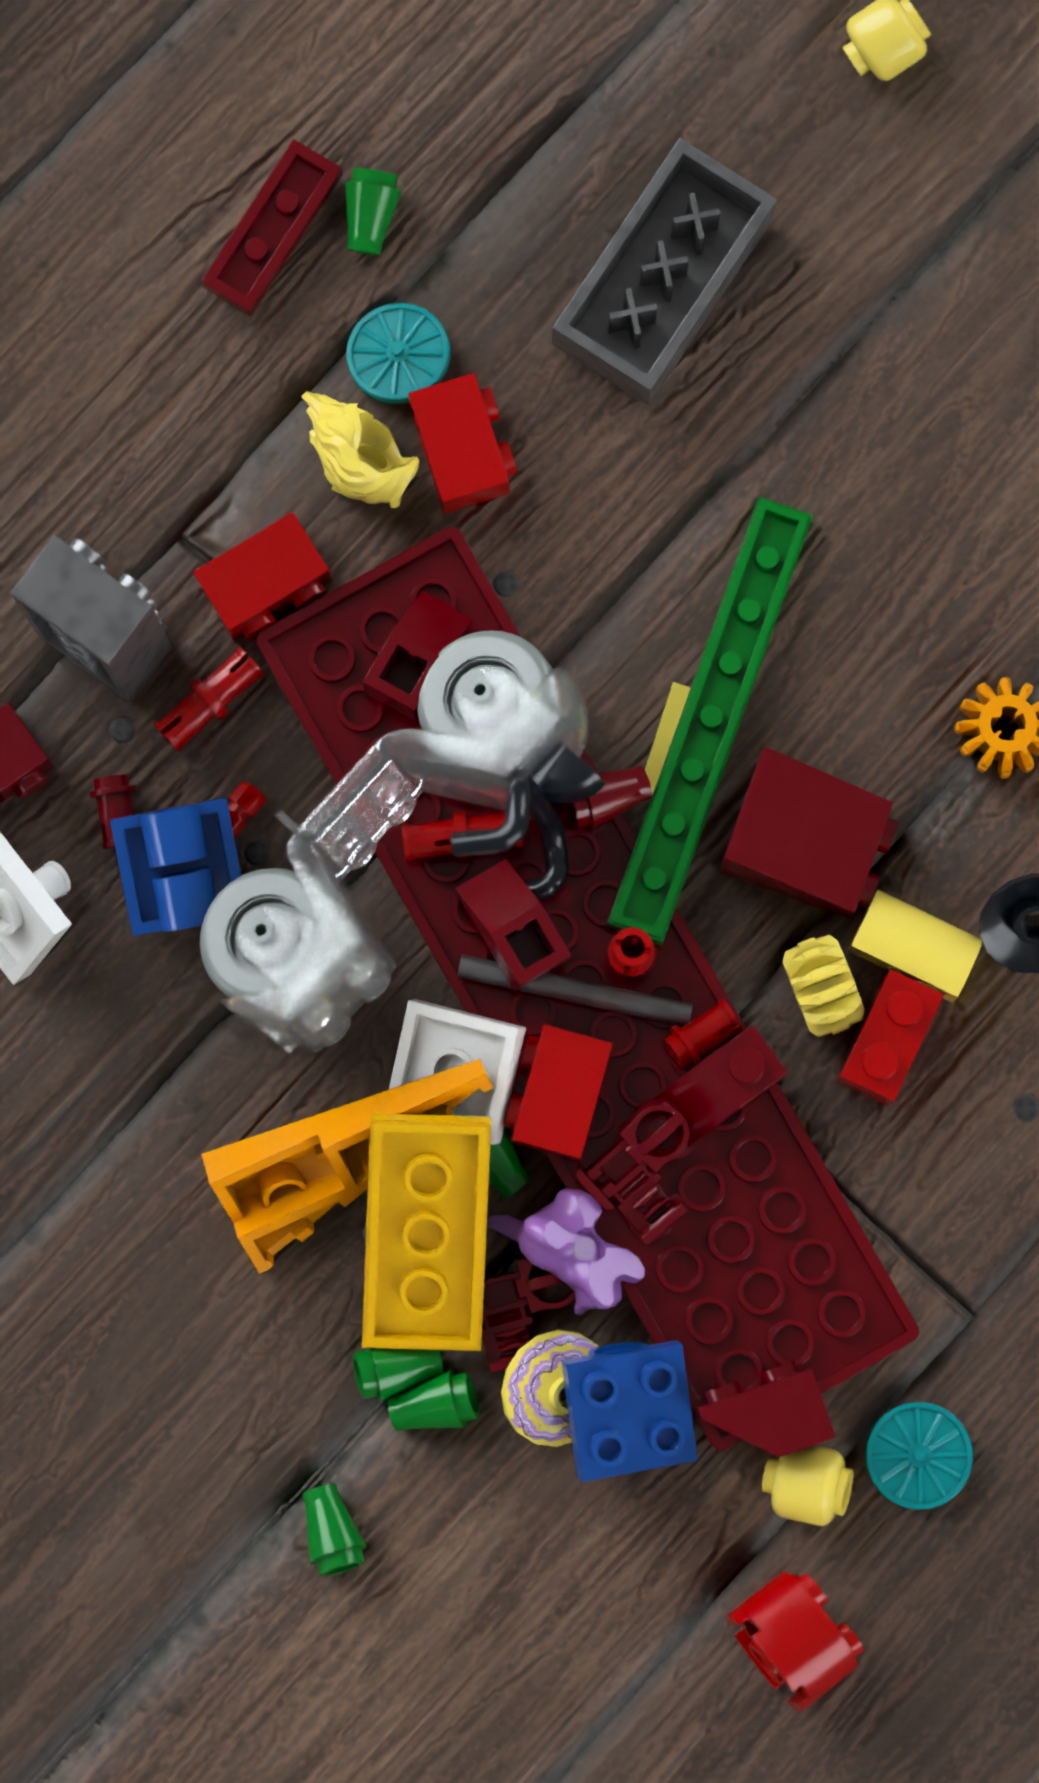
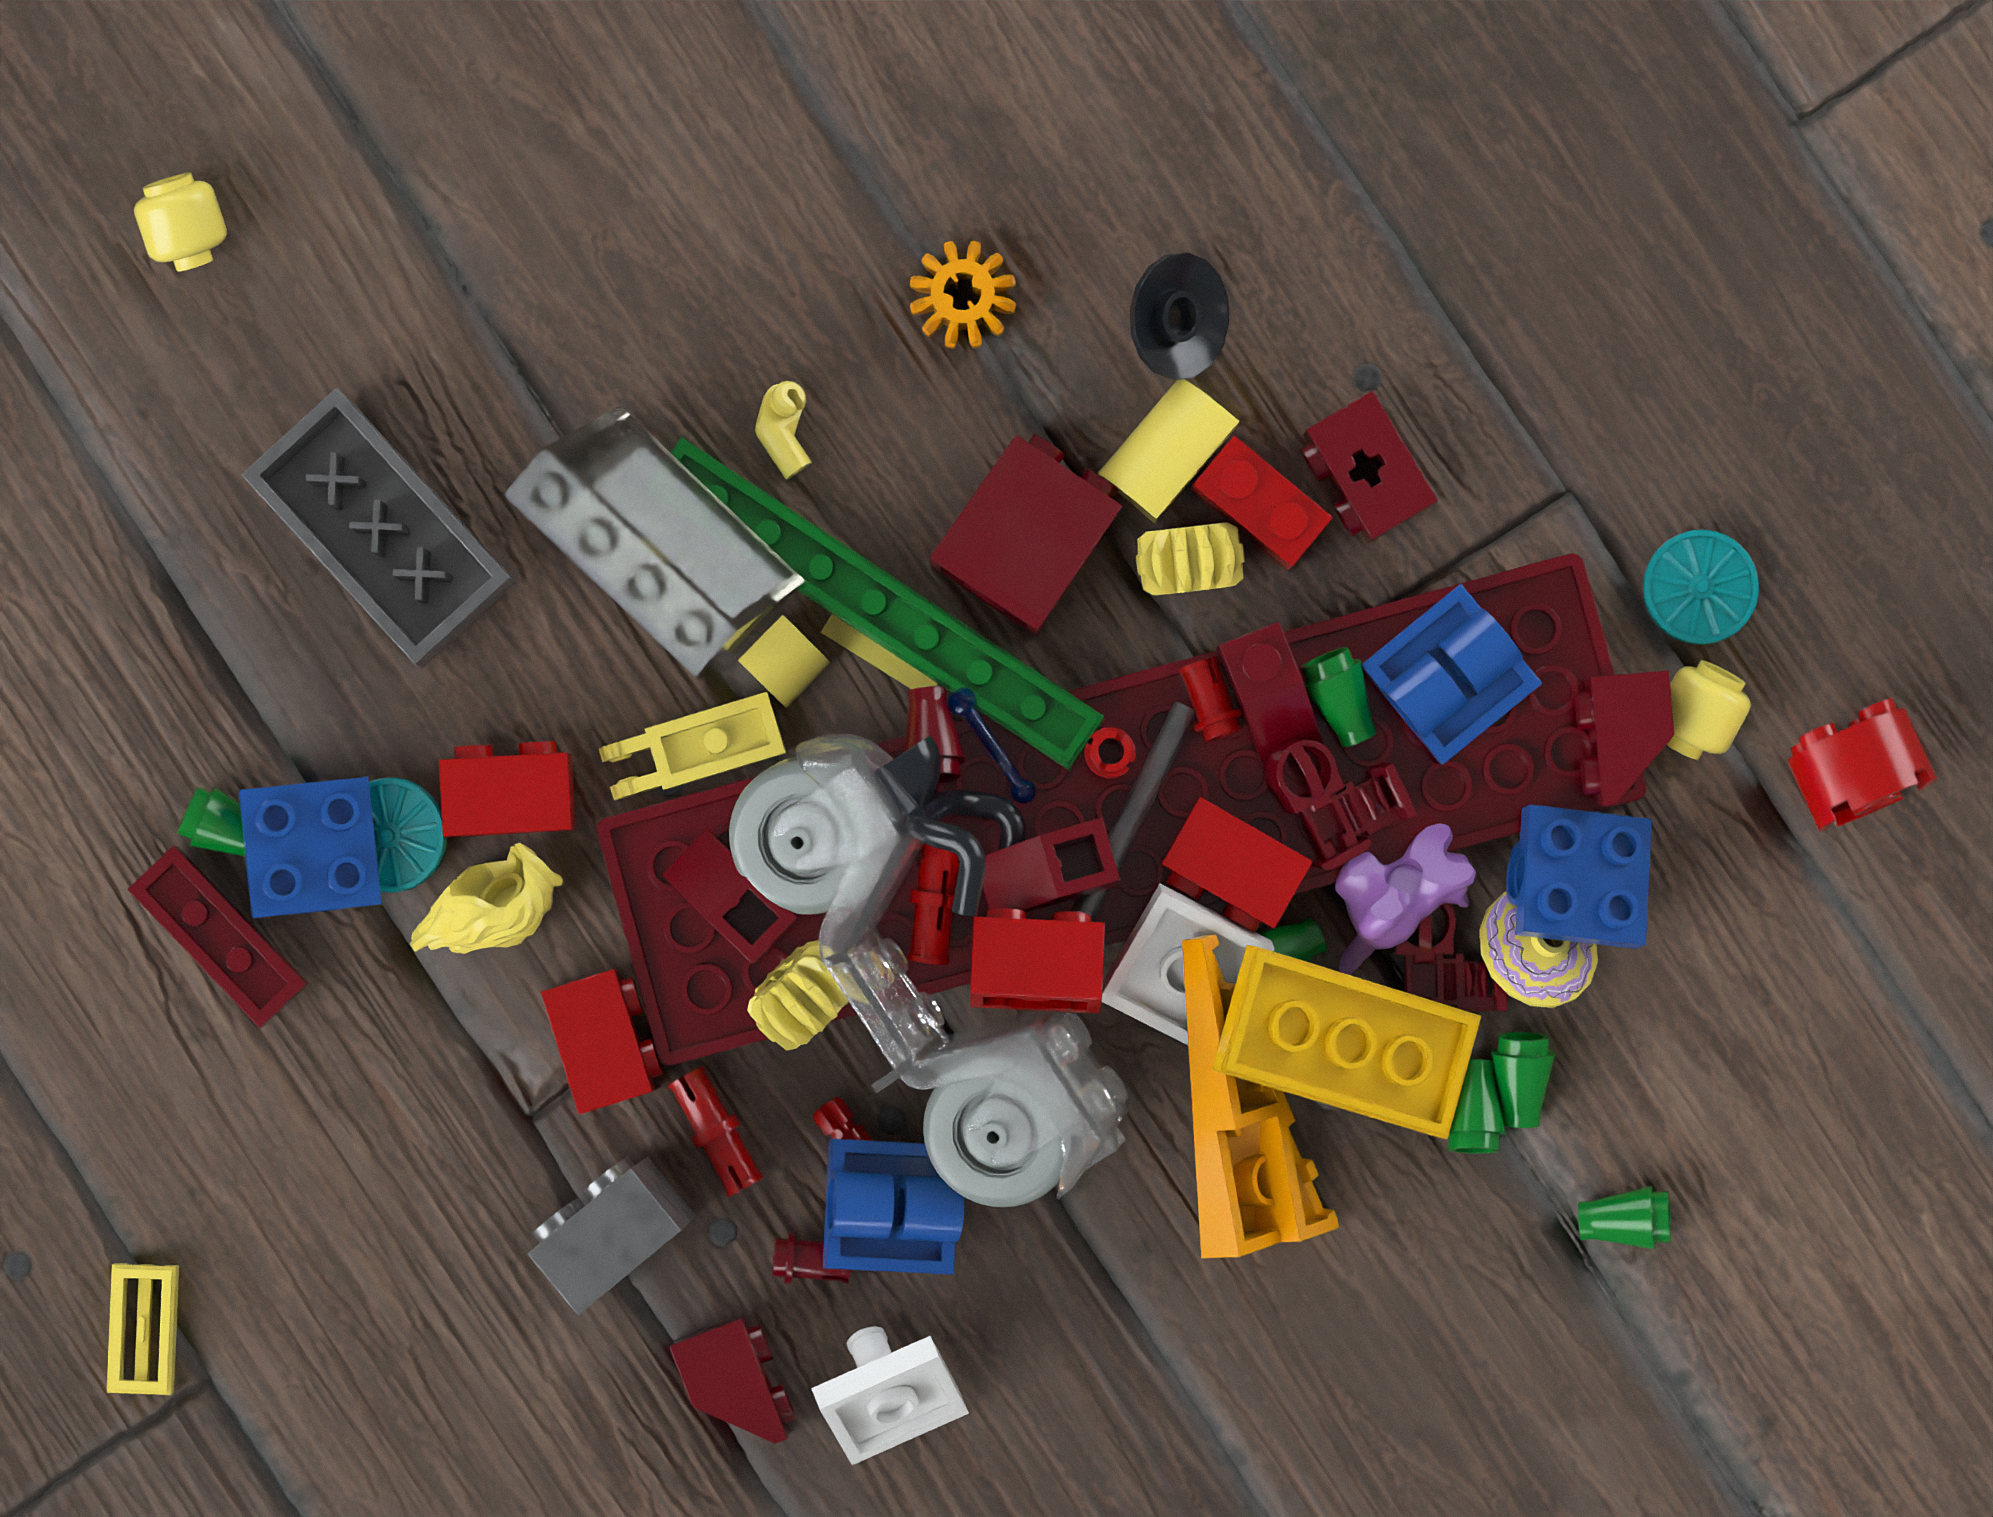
camera: 75 degrees left, 5 degrees up
(338, 730) = (797, 998): none -> light yellow gear
(369, 283) = (310, 847): none -> blue plate
(427, 932) = (1037, 962): none -> red slope
(545, 599) = (701, 745): none -> light yellow hinge
(638, 652) = (784, 661): none -> light yellow brick
(641, 816) = (963, 703): none -> clear blue hinge
(713, 503) = (655, 540): none -> clear smoke windscreen
(736, 1149) = (1340, 694): none -> green cone
(781, 1244) = (1451, 674): none -> blue plate
(845, 597) = (777, 427): none -> light yellow arm
(979, 1114) = (1399, 486): none -> dark red brick

